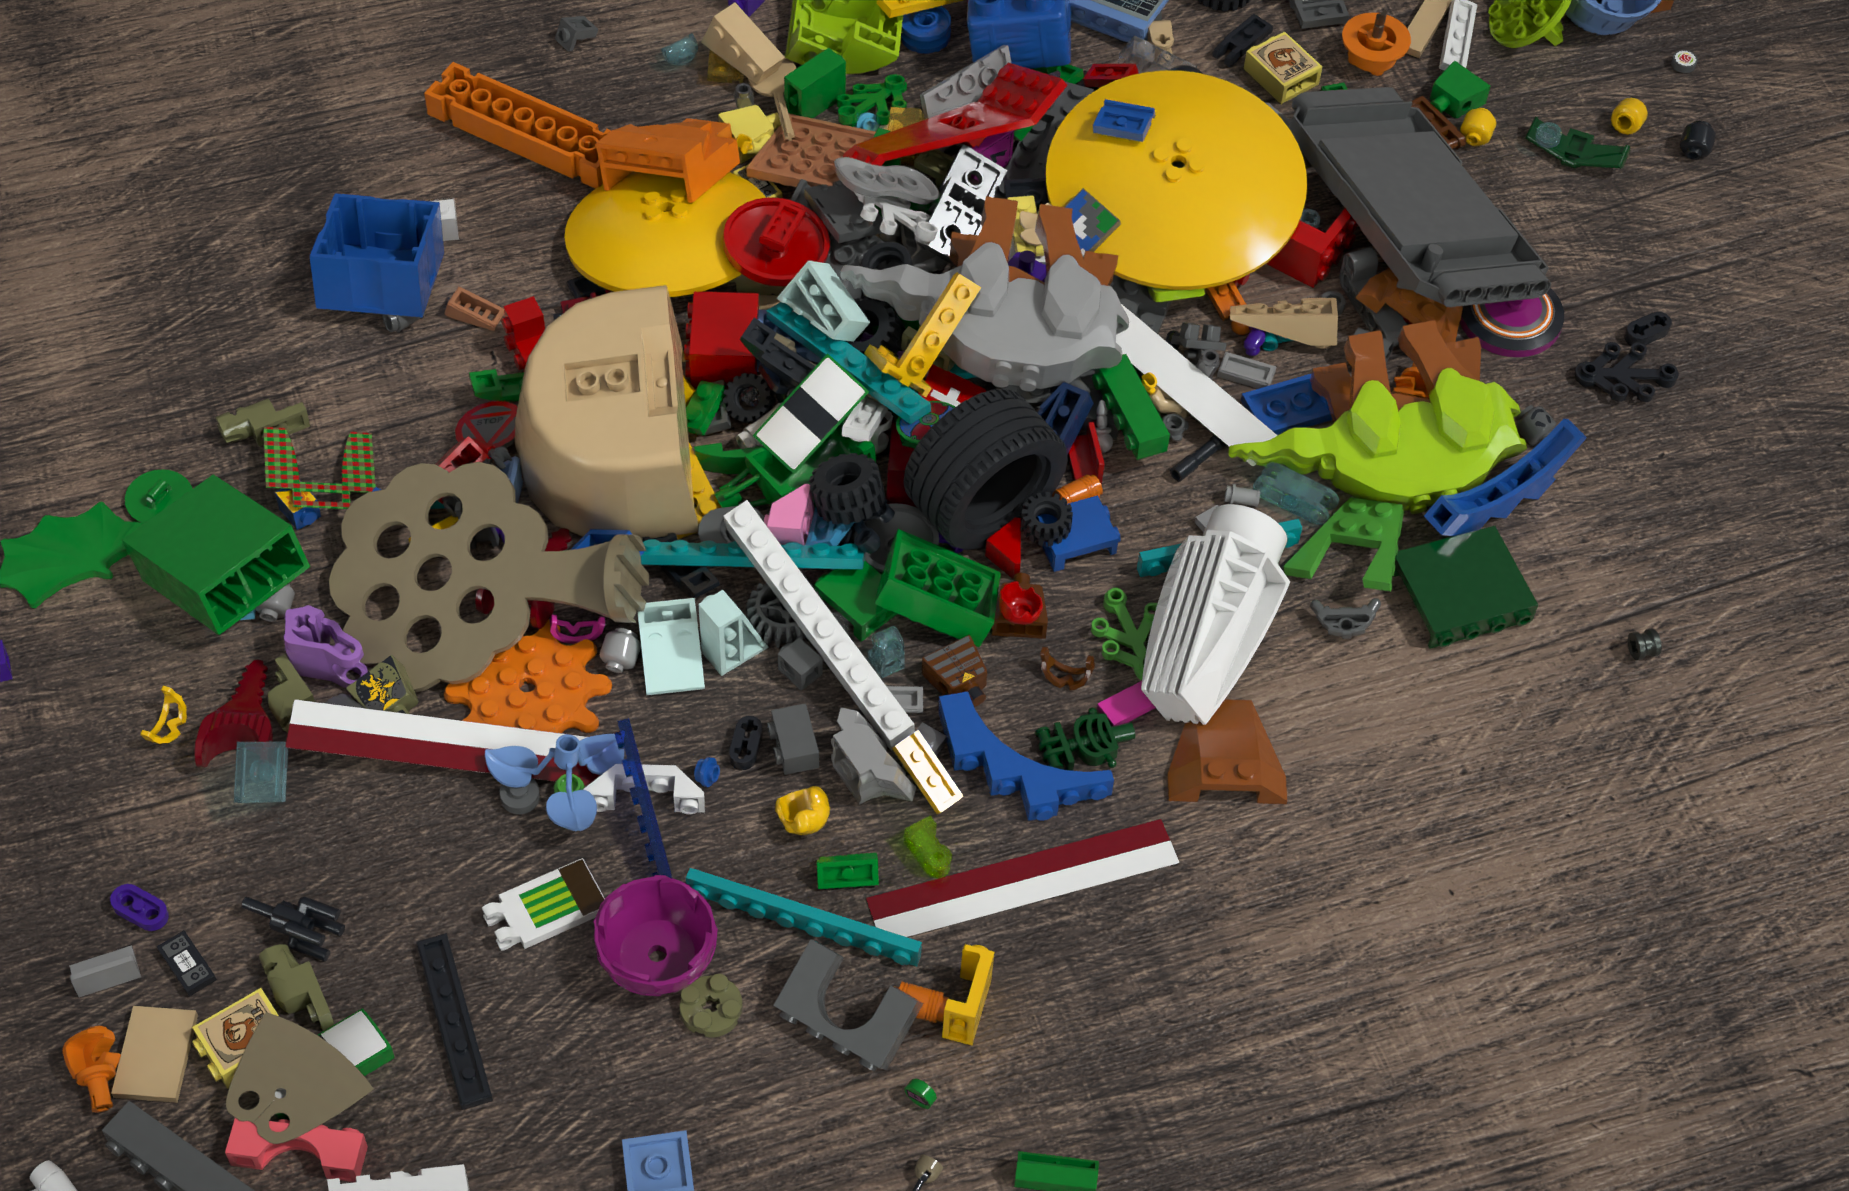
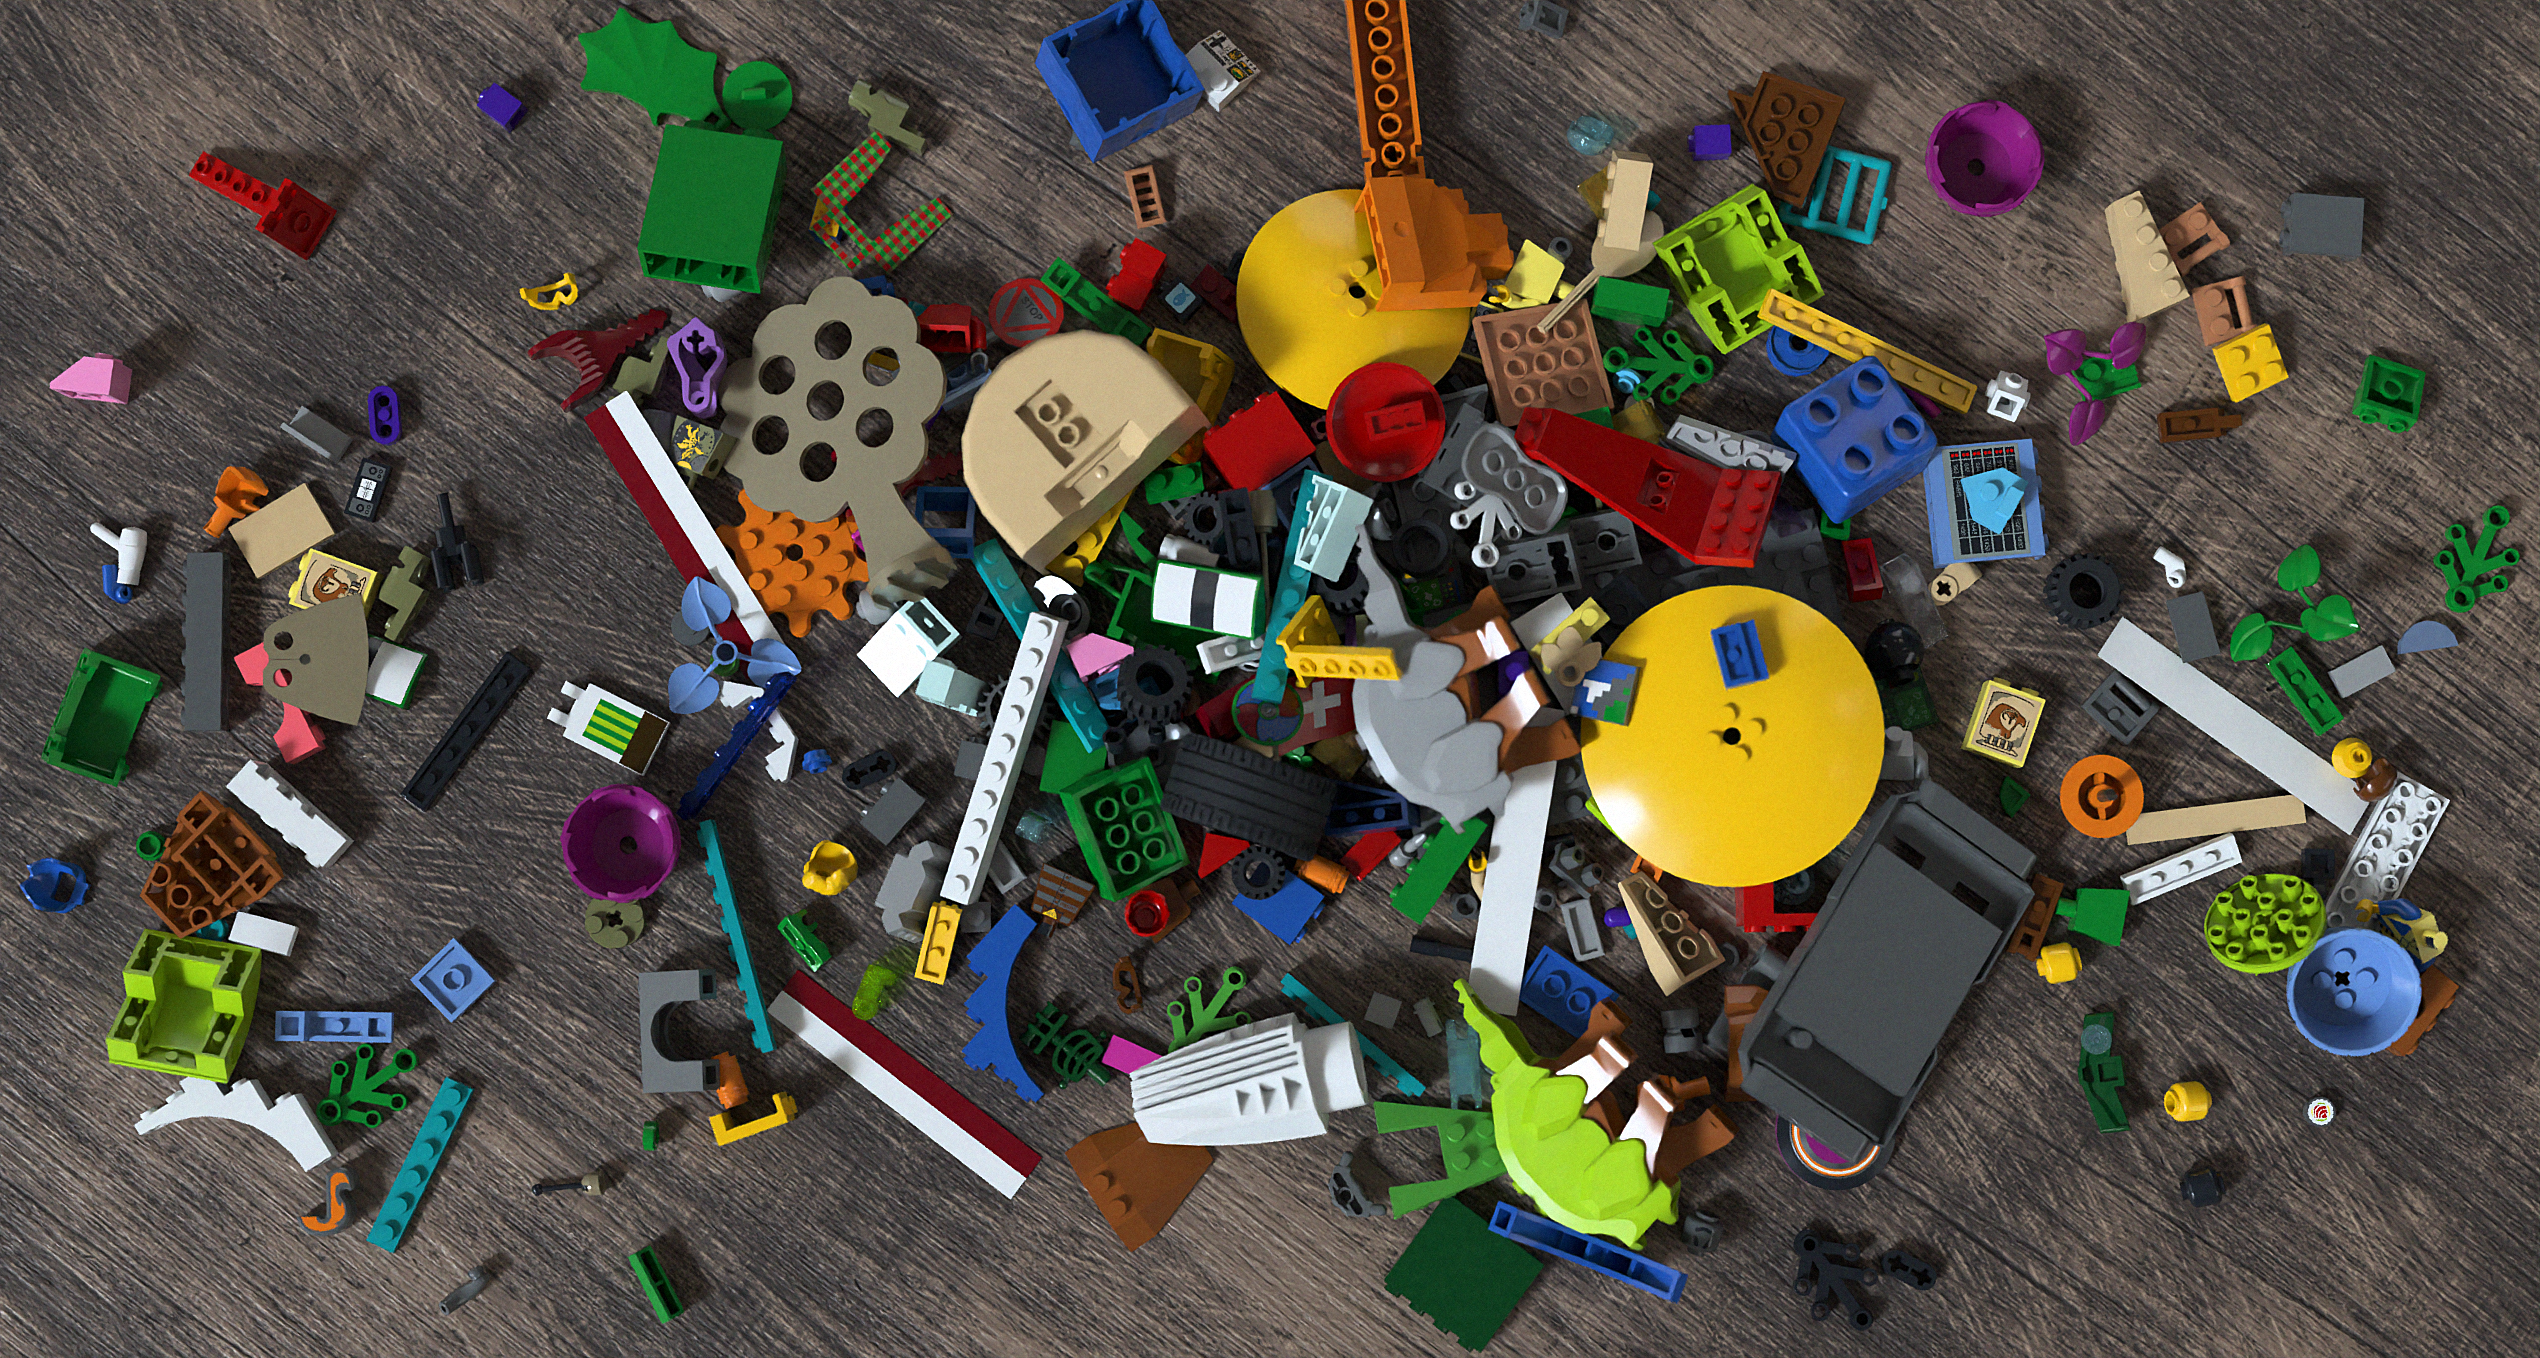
camera: 55 degrees right, 30 degrees up
(260, 771) = (548, 417): clear light blue plate -> none
(1242, 39) = (2019, 660): black hinge -> none

